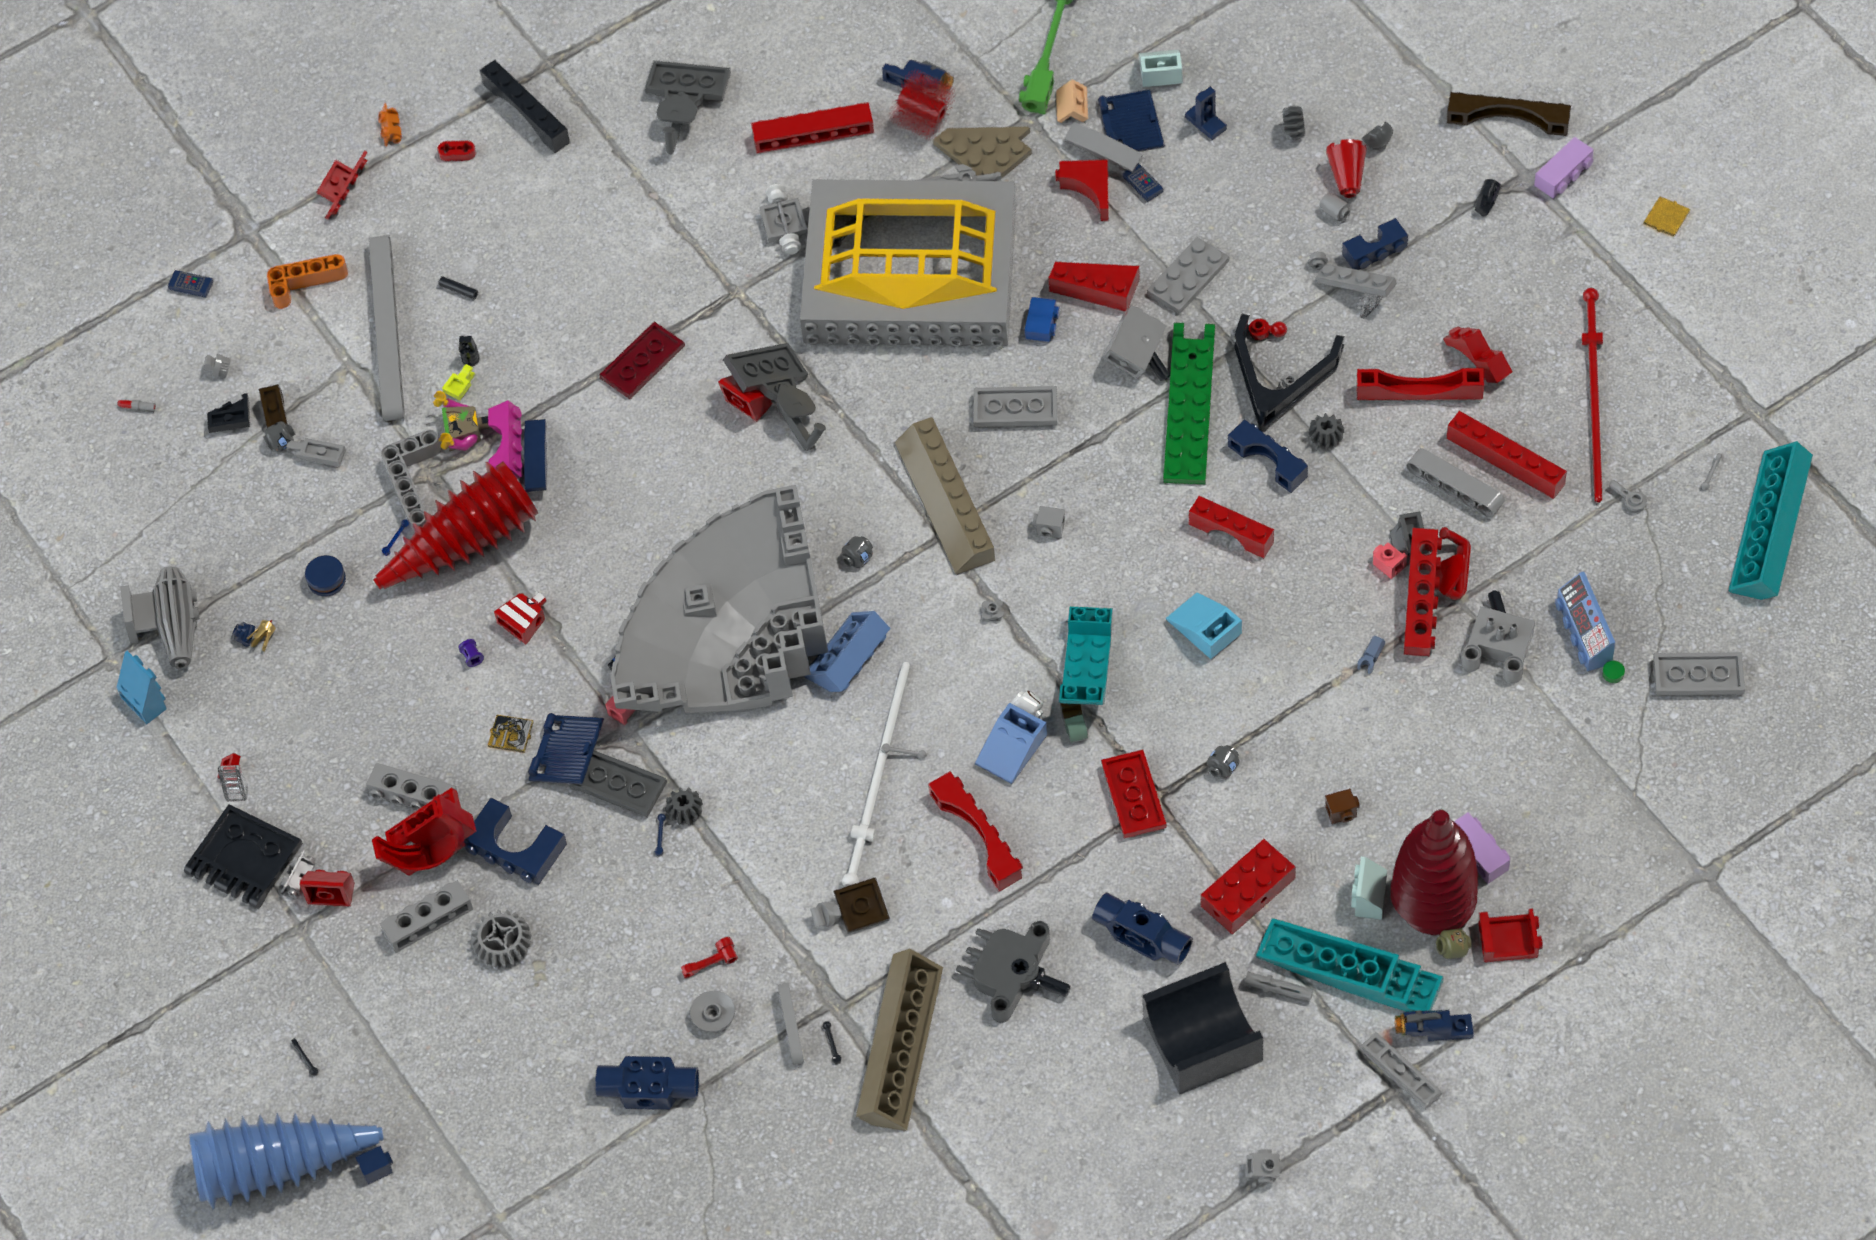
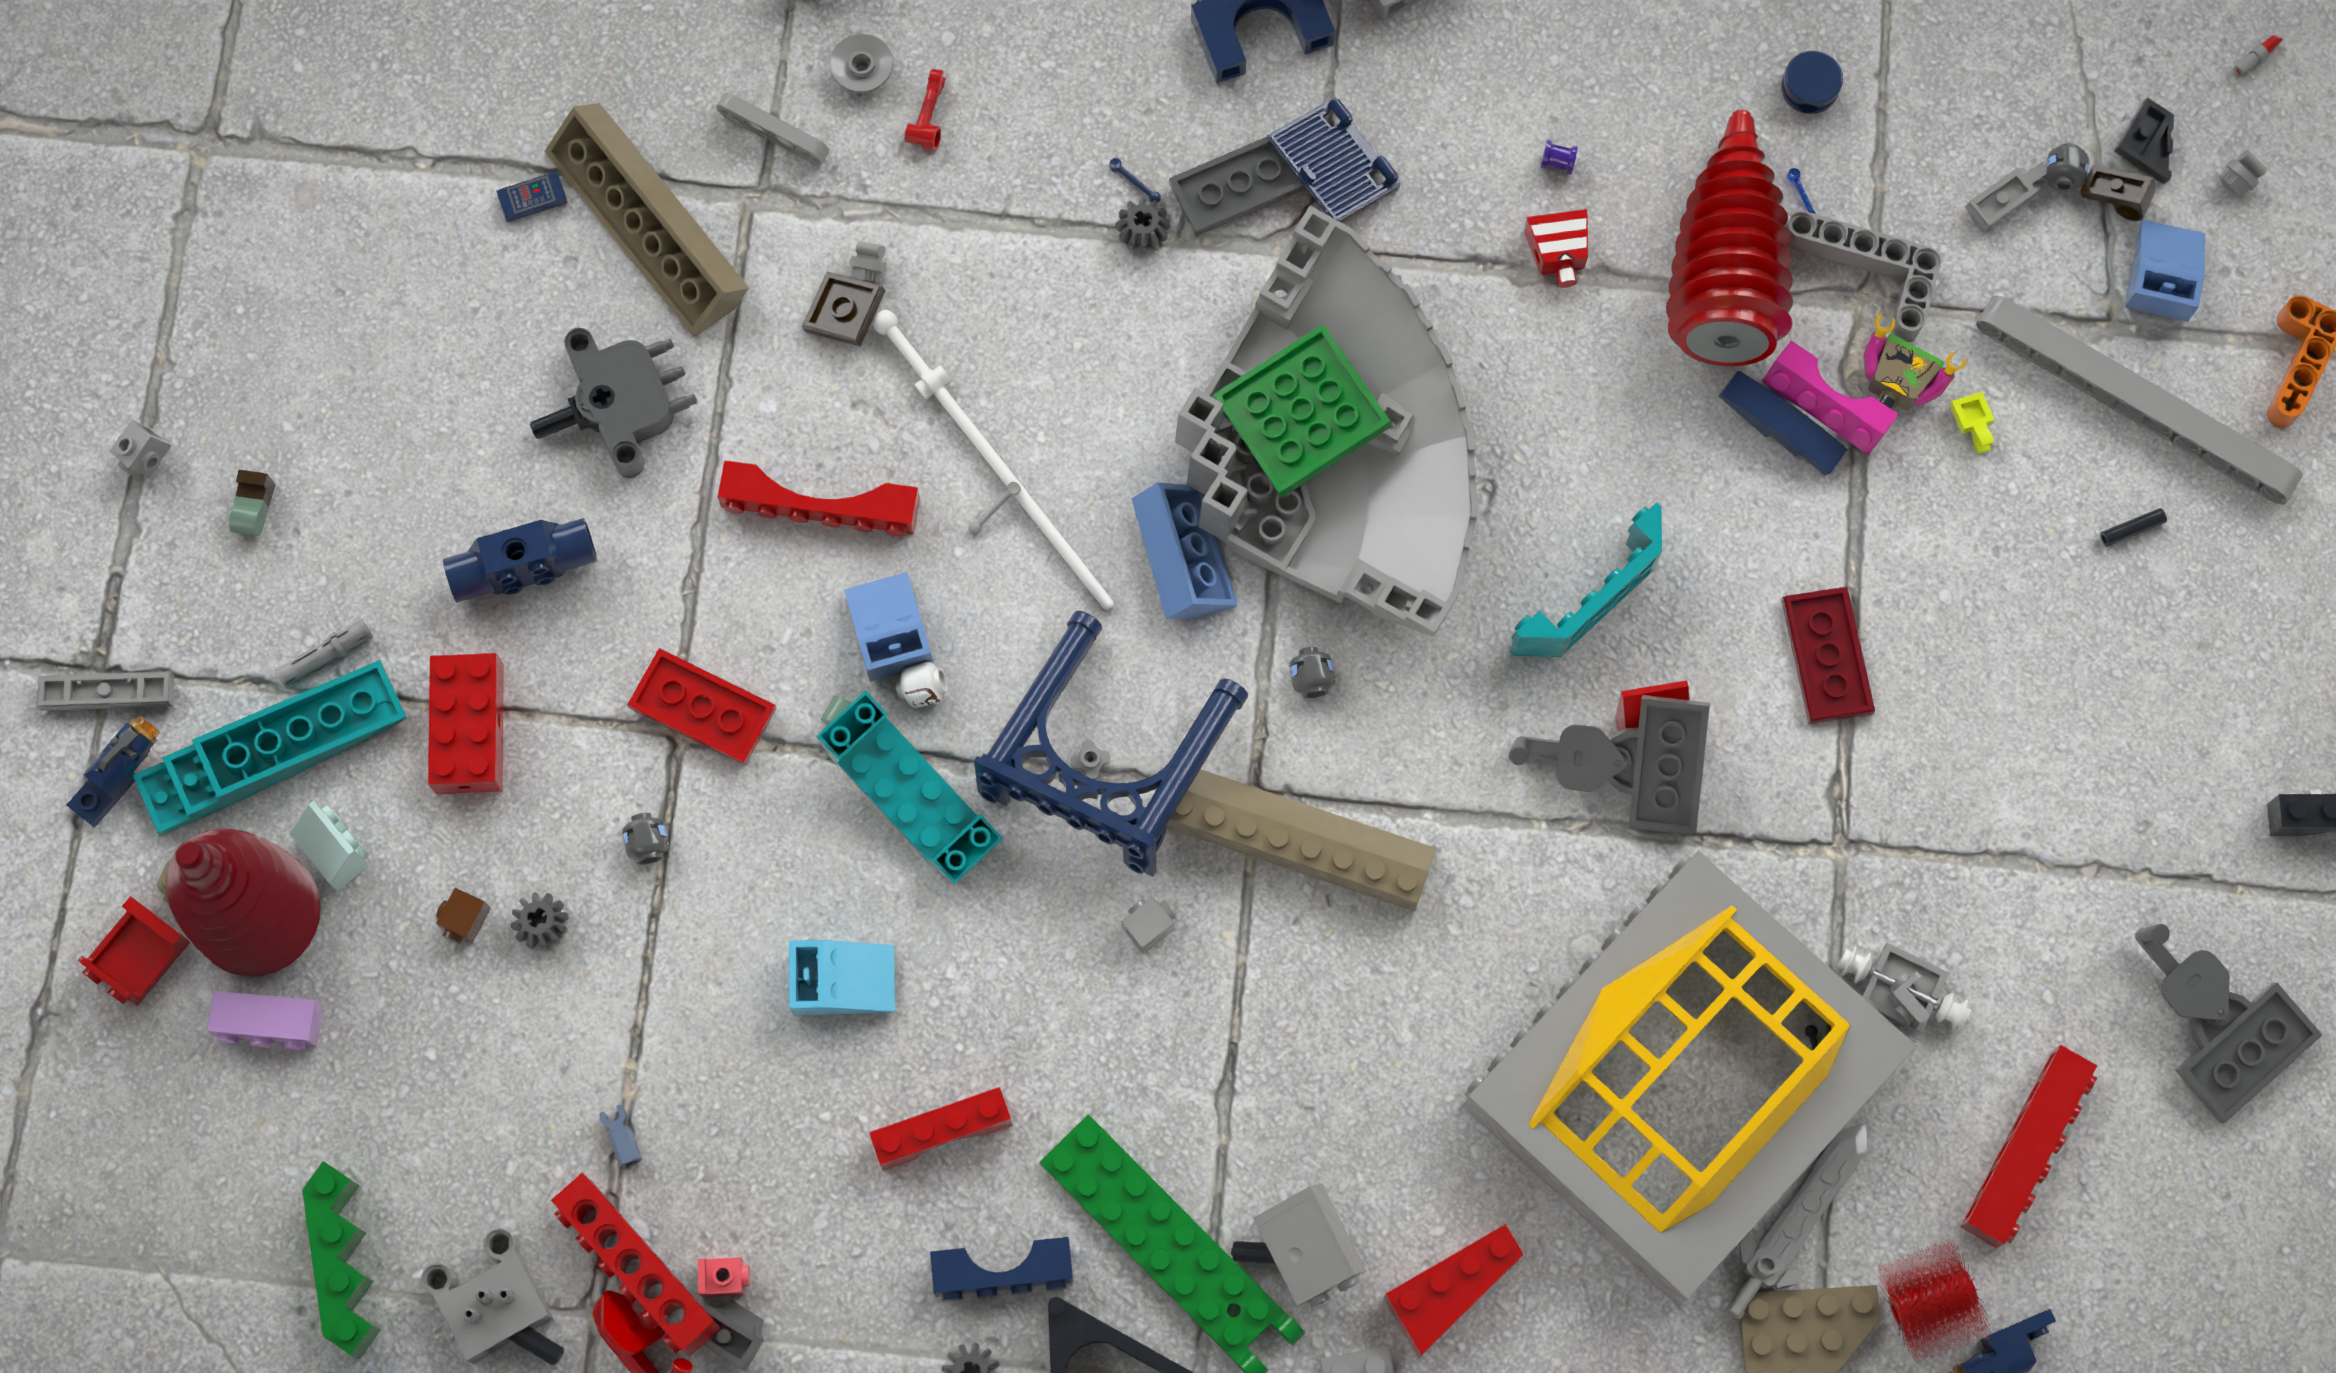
camera: 125 degrees right, 15 degrees up
(301, 358) = (2167, 271): none -> medium blue slope
(469, 349) = (2012, 459): black hinge -> none
(510, 733) = (1414, 127): piece -> none
(699, 454) = (1542, 638): none -> teal slope
(727, 636) = (1302, 410): none -> green plate
(789, 211) = (1907, 1006): none -> light grey bracket
(836, 1058) = (693, 149): black hinge -> none
(939, 1111) = (531, 196): none -> dark blue tile
(1015, 406) = (1356, 1029): light grey plate -> none
(1029, 632) = (1002, 773): none -> dark blue arch
(1041, 319) = (1459, 1172): blue brick -> none
(1201, 1028) = (340, 518): black piece -> none
(1237, 1091) = (251, 502): none -> leg
(1309, 771) = (541, 932): none -> dark grey gear
(1544, 724) = (331, 1245): none -> green brick

